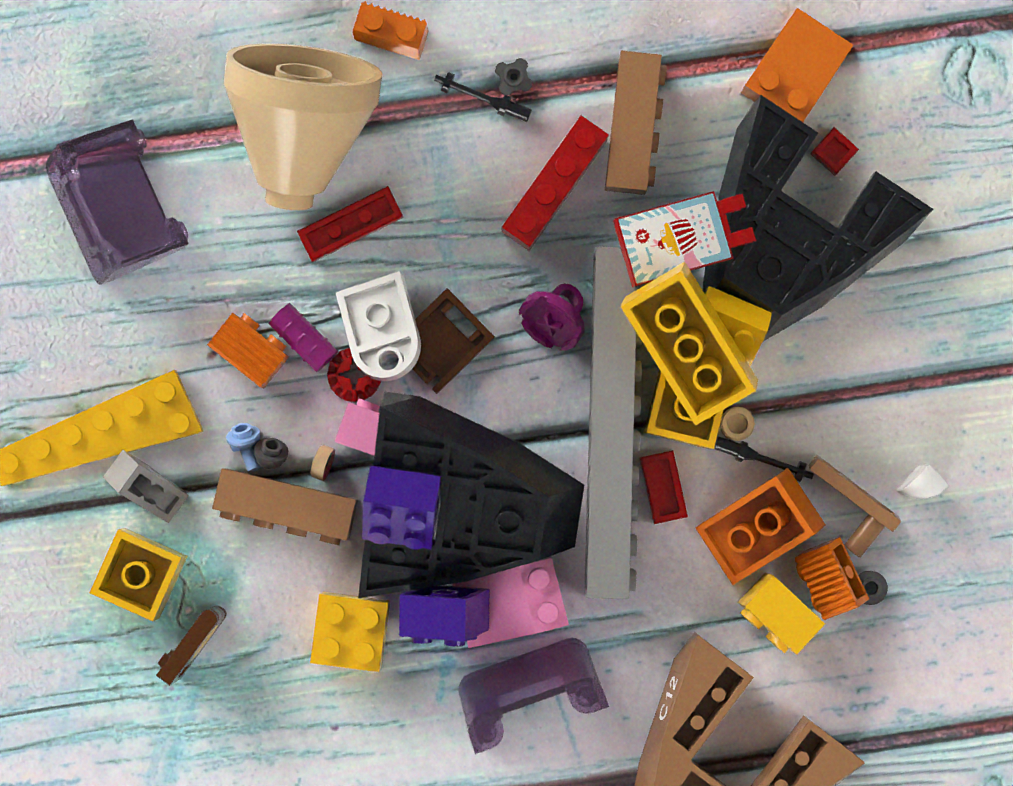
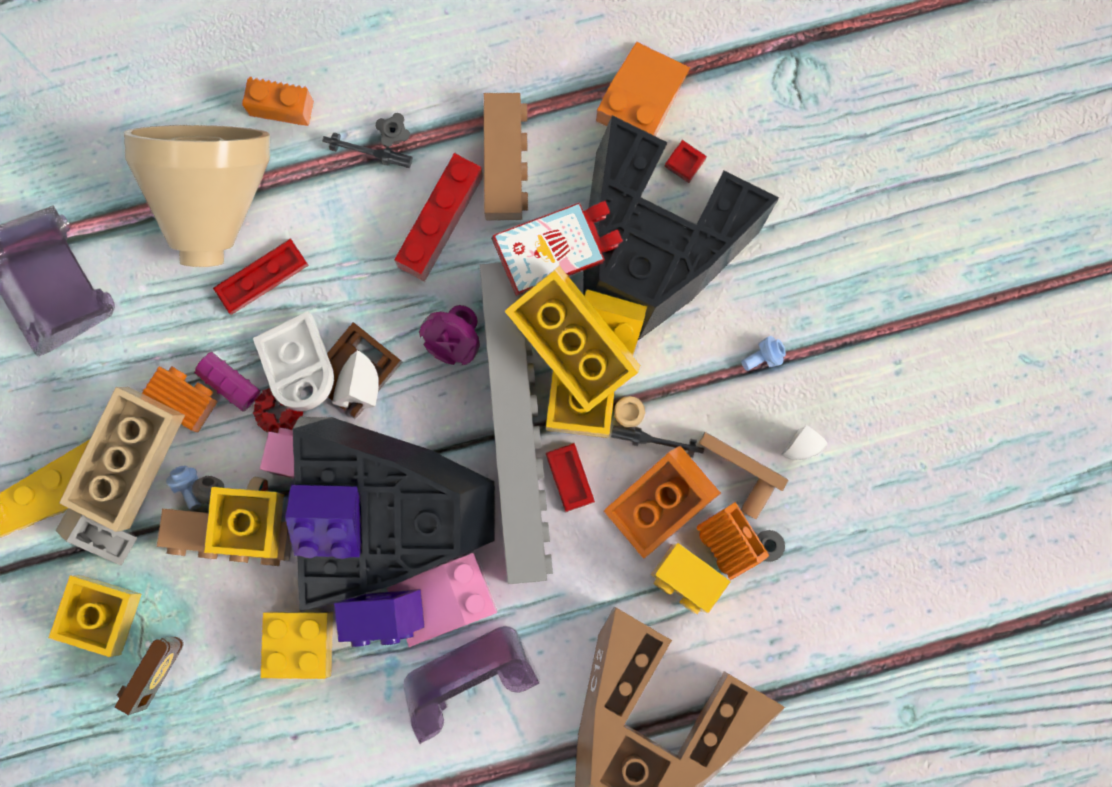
camera: 10 degrees left, 5 degrees down
(186, 411) = (122, 459): none -> tan brick
(311, 497) = (244, 522): none -> yellow brick
(445, 356) = (357, 382): none -> white brick
(899, 375) = (770, 351): none -> light blue plate

